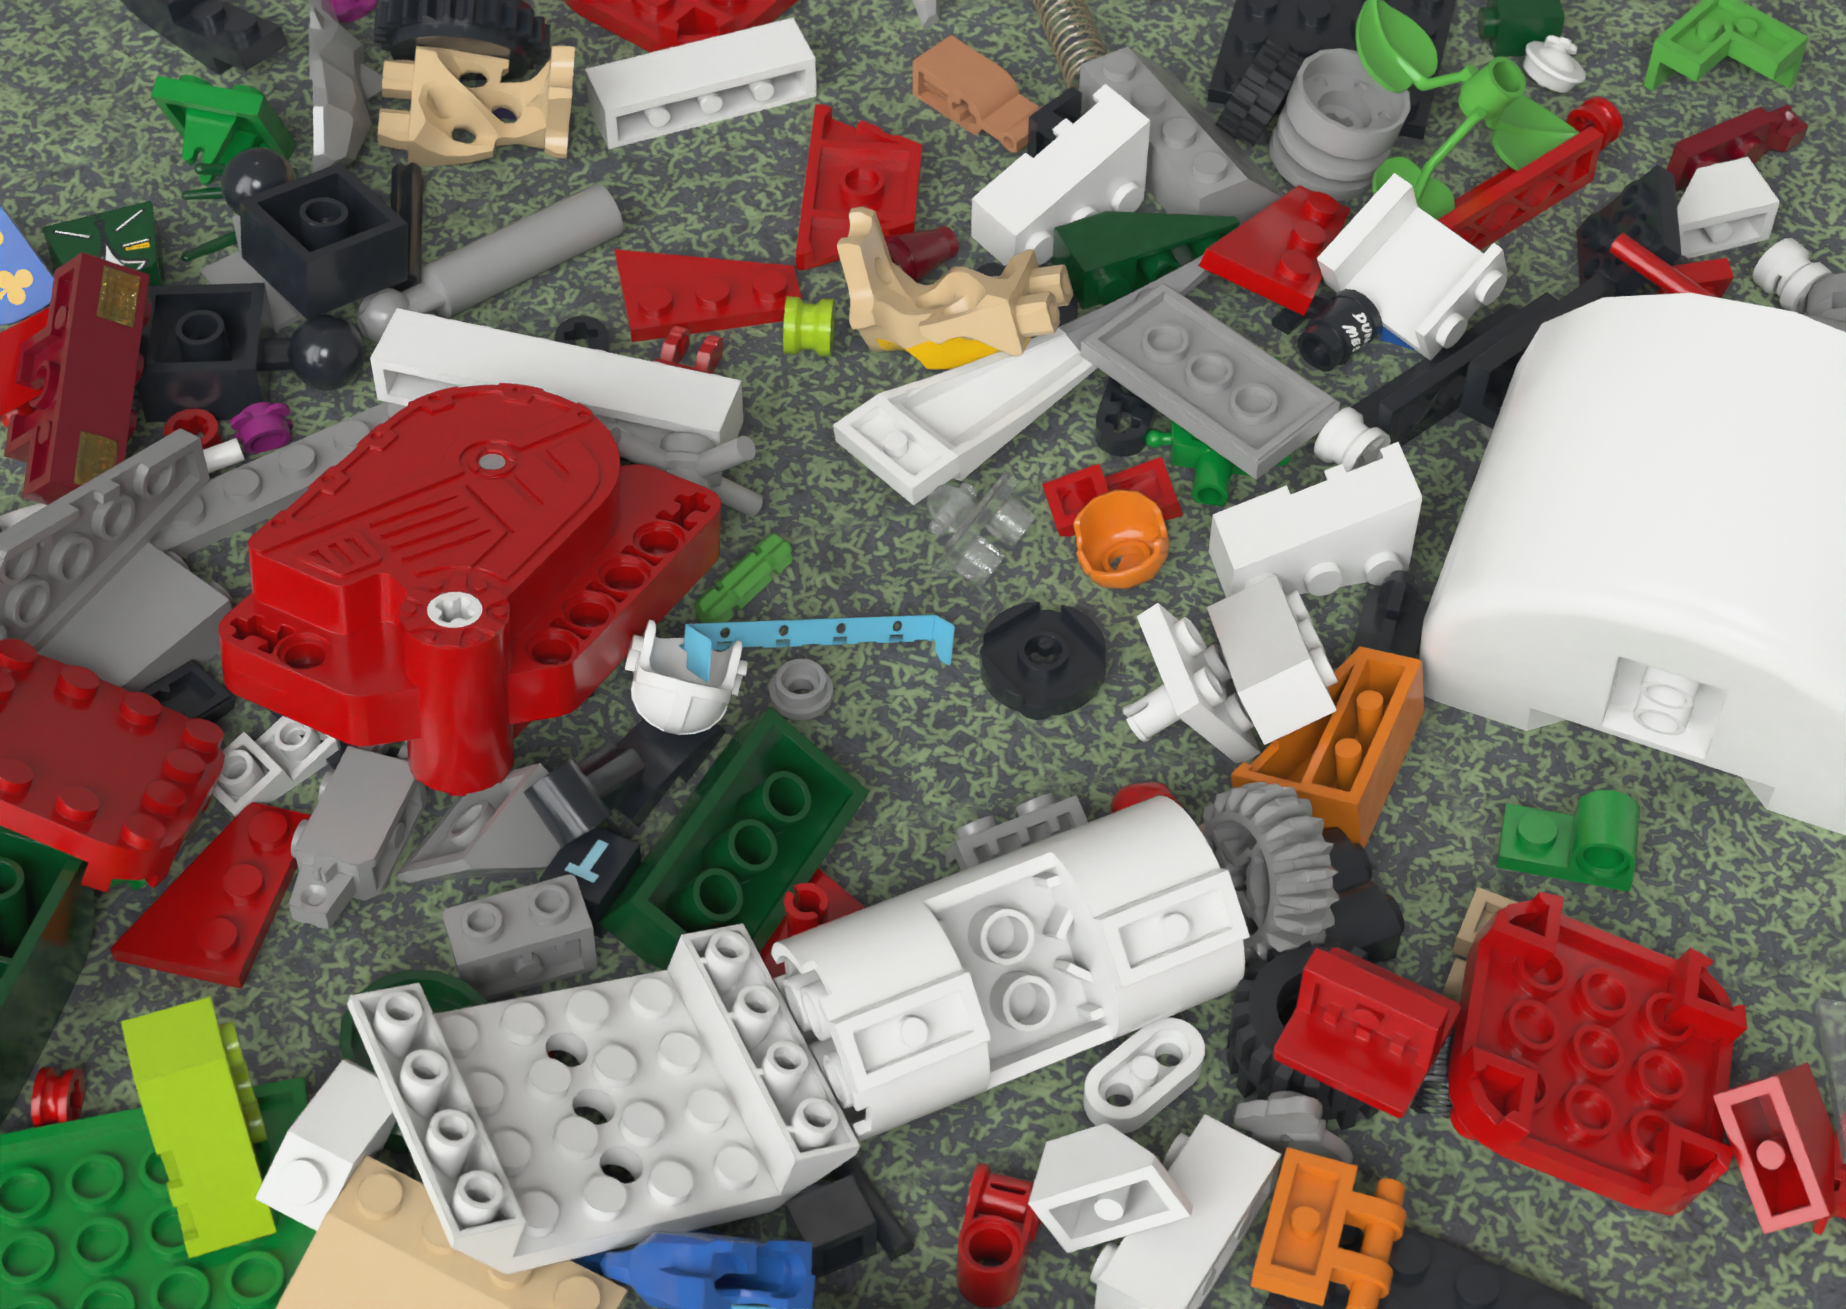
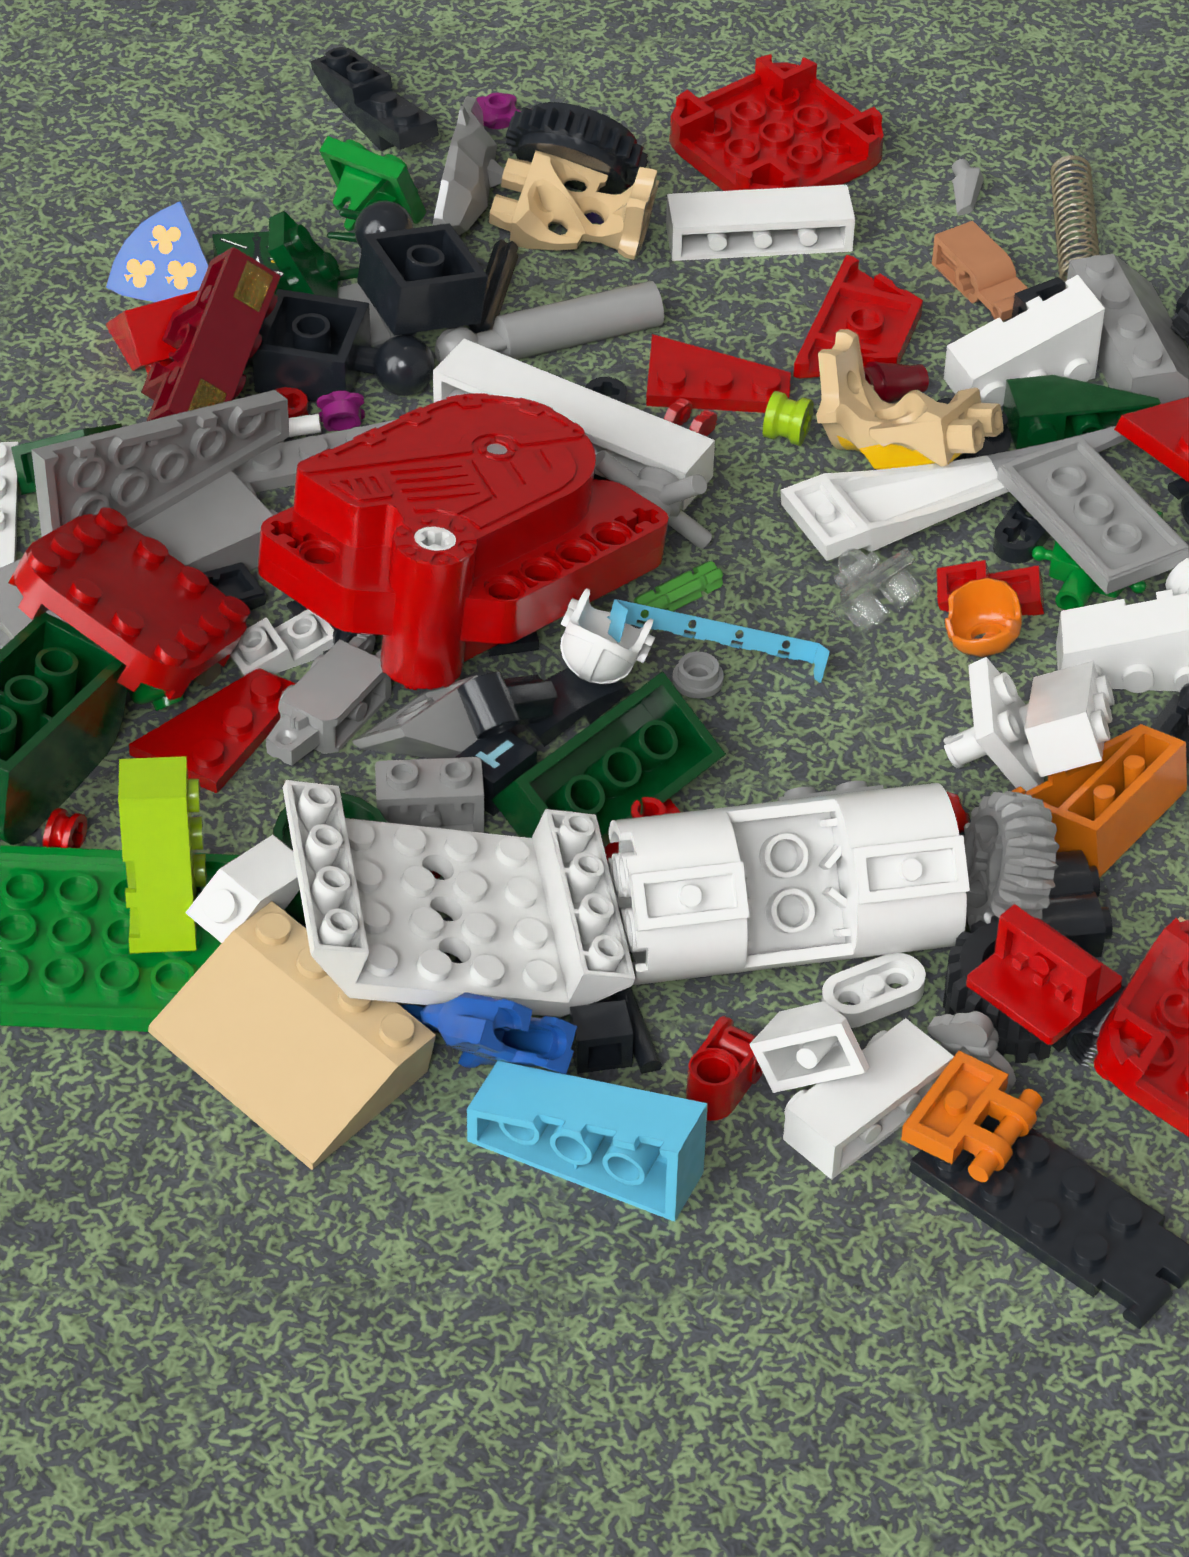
camera: 15 degrees right, 5 degrees down
(162, 240) = (301, 259): none -> dark green wing
(1035, 688) = (889, 713): black plate -> none

